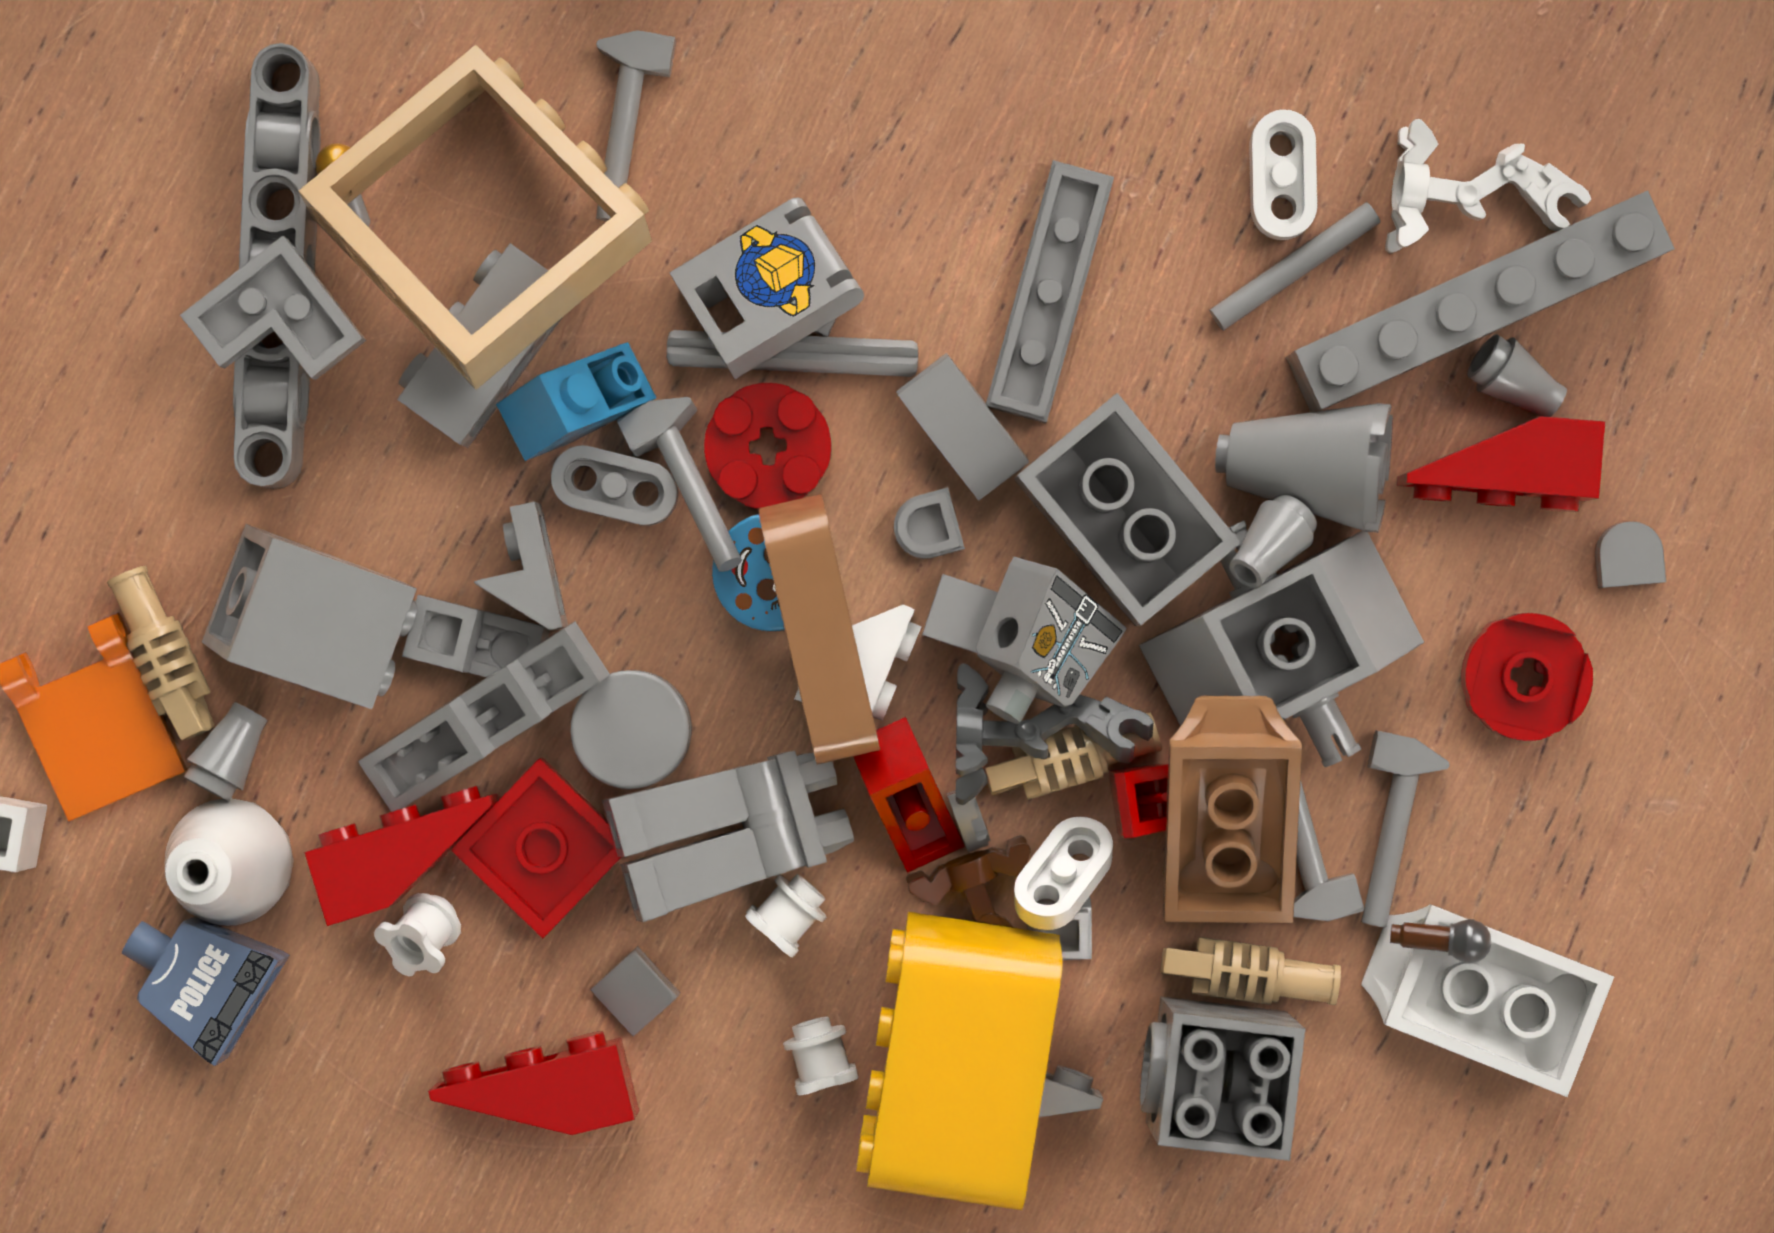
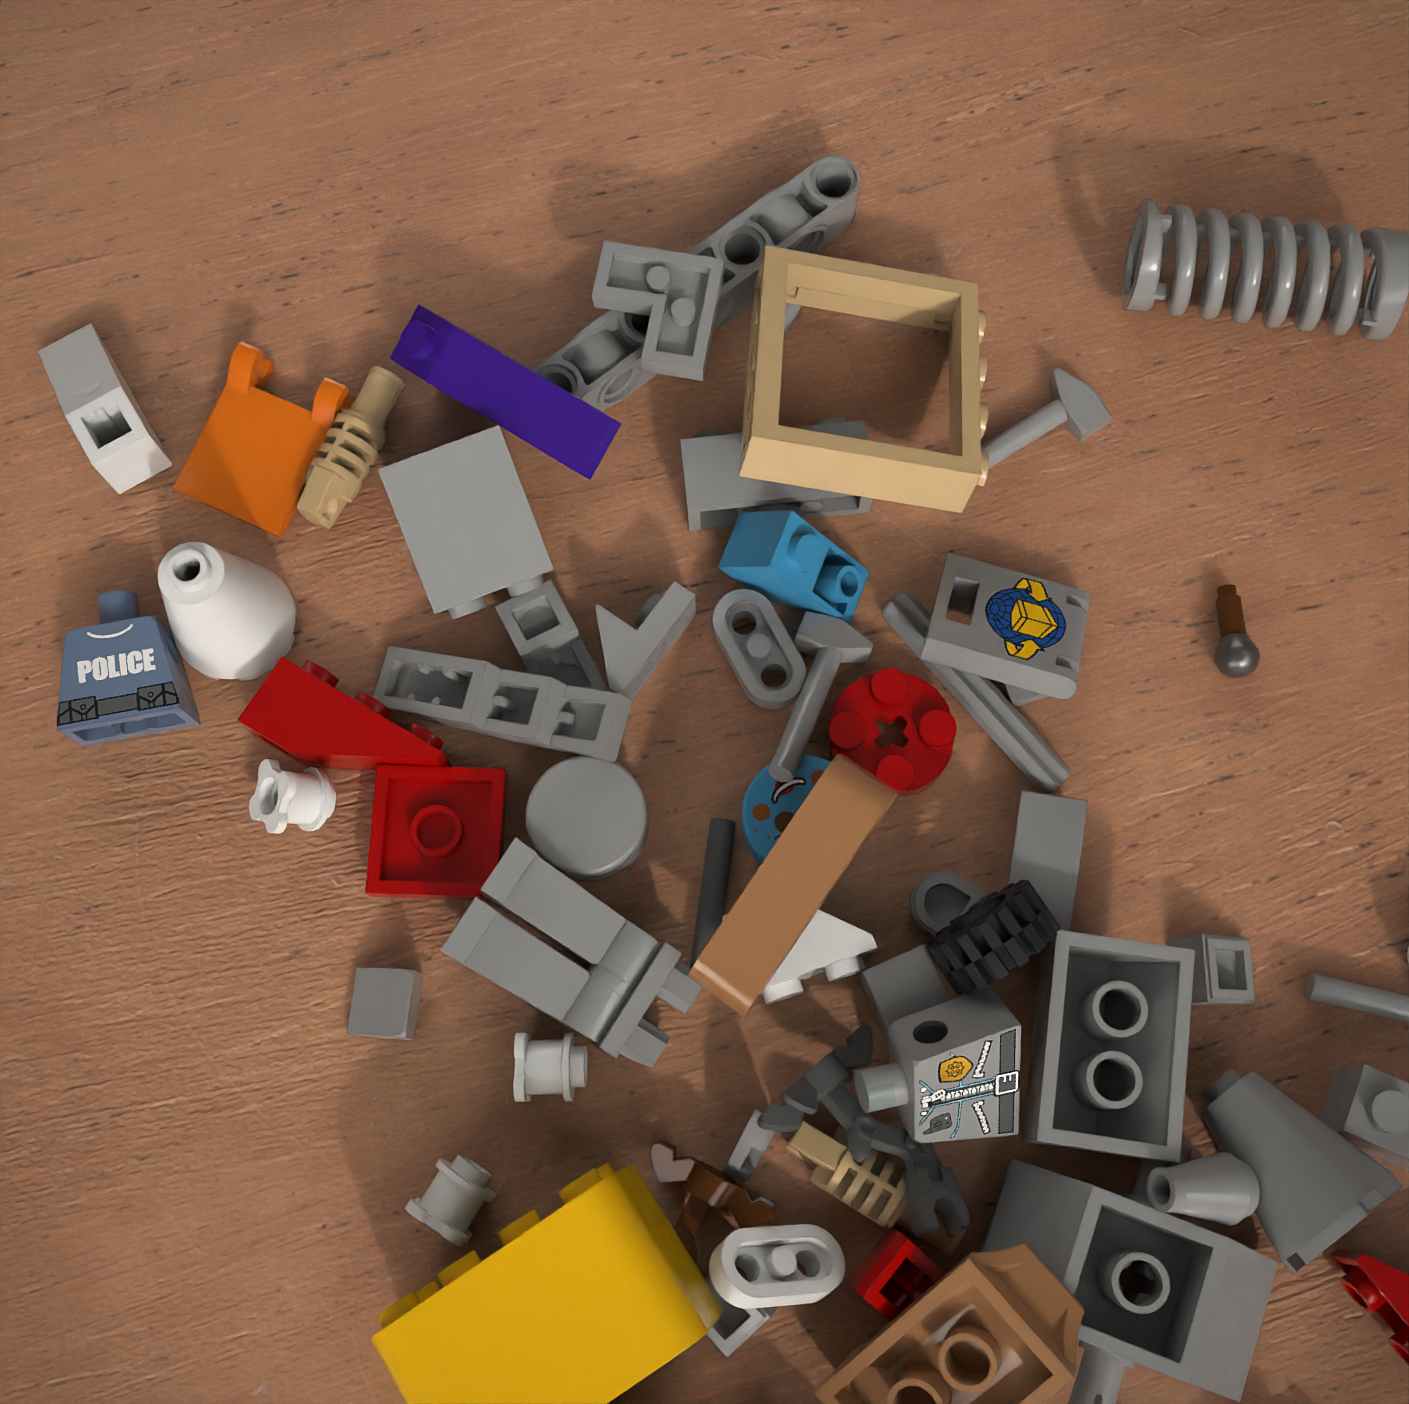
camera: 50 degrees right, 15 degrees down
(227, 753) = (314, 549): light grey cone -> none
(234, 502) = (505, 391): none -> dark purple slope
(557, 1092) = (249, 1012): red slope -> none
(764, 682) = (713, 883): none -> dark grey piece
(908, 797) = (724, 1079): red slope -> none
(940, 129) = (1236, 651): none -> piece
(981, 523) = (993, 937): none -> black tyre
(1049, 291) = (1202, 839): light grey tile -> none
(1145, 376) = (1220, 969): none -> light grey slope

